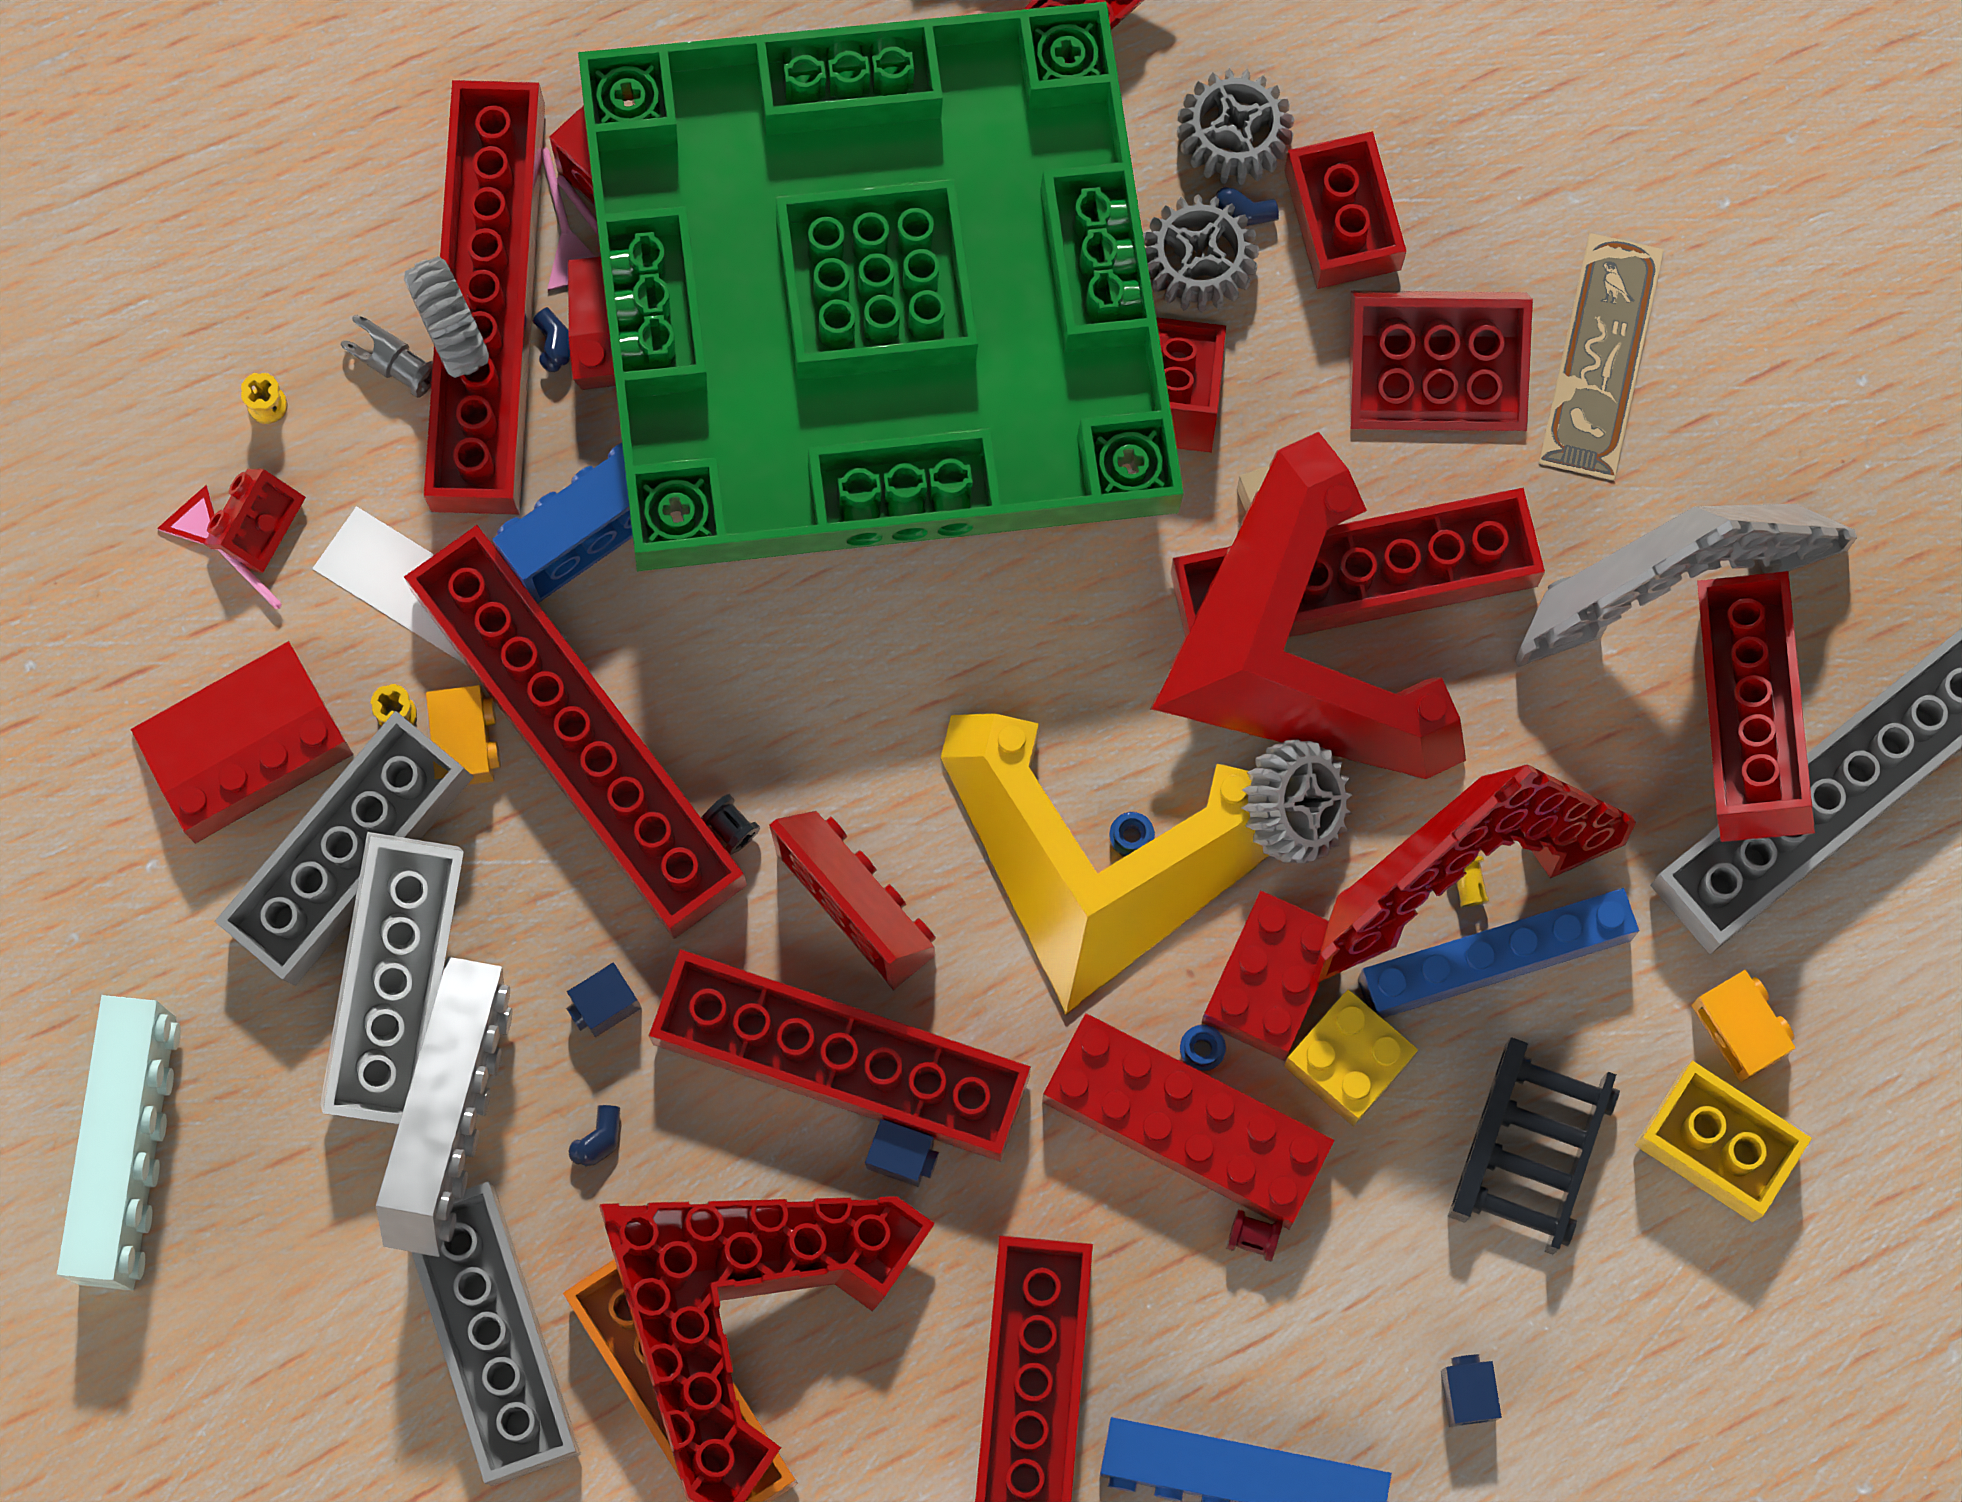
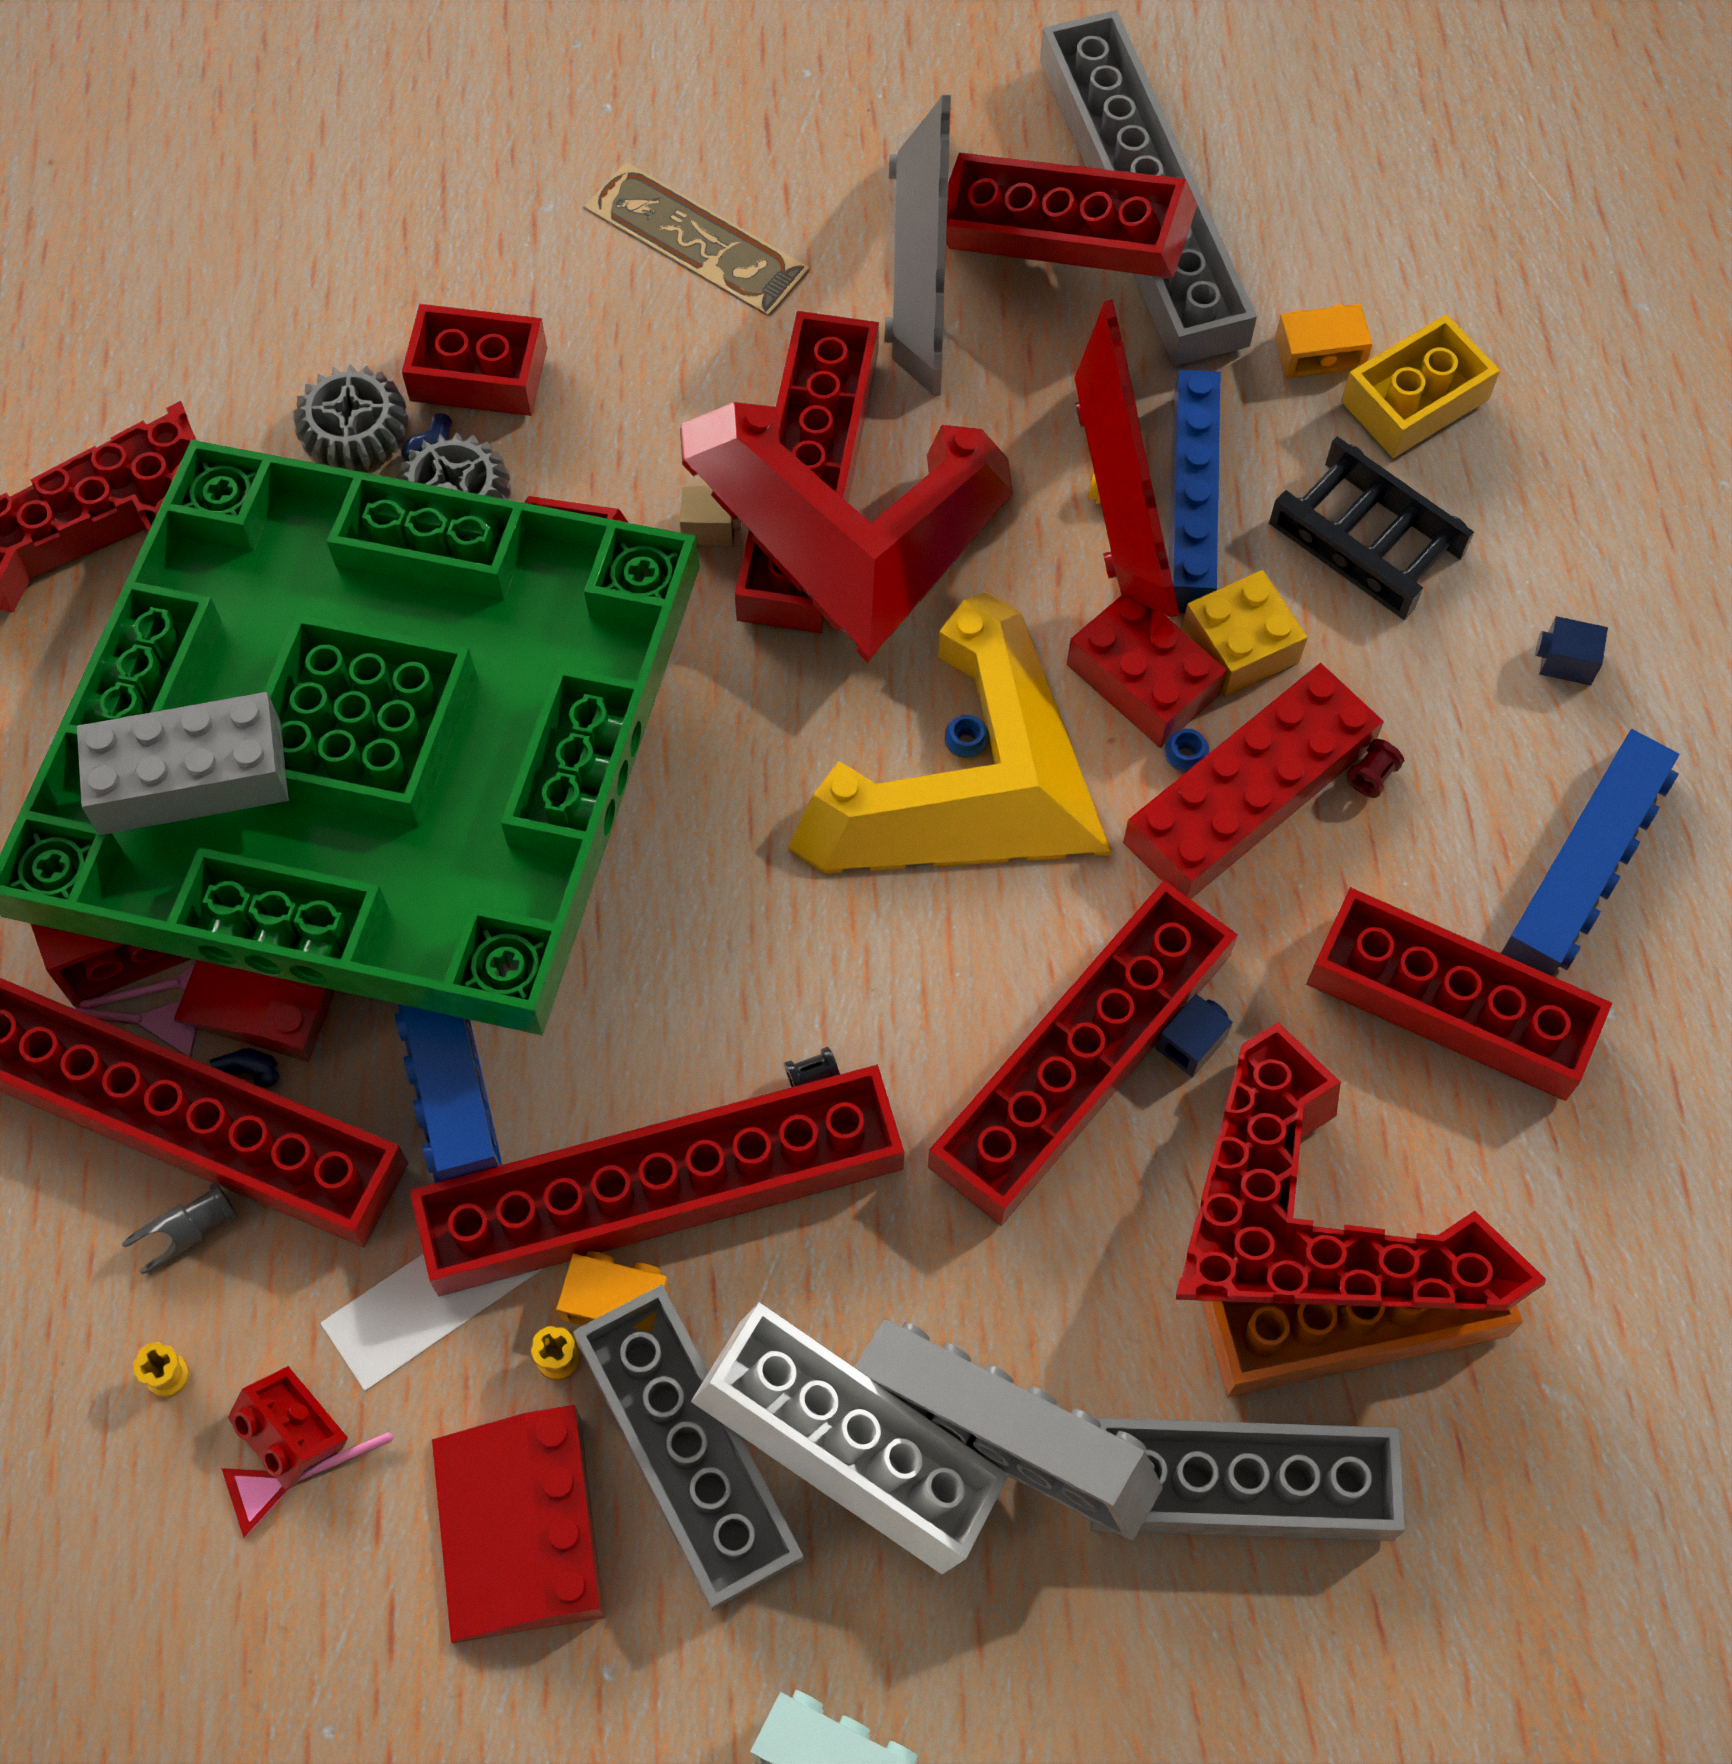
camera: 70 degrees left, 10 degrees down
(446, 316) = (185, 1126): light grey gear -> none
(601, 1141) = (1081, 1309): dark blue arm -> none
(602, 1001) = (942, 1254): dark blue brick -> none
(751, 155) = (181, 763): none -> light grey brick
(852, 896) = (938, 985): red slope -> none
(1293, 828) = (1000, 582): light grey gear -> none
(1440, 360) = (644, 344): red slope -> none

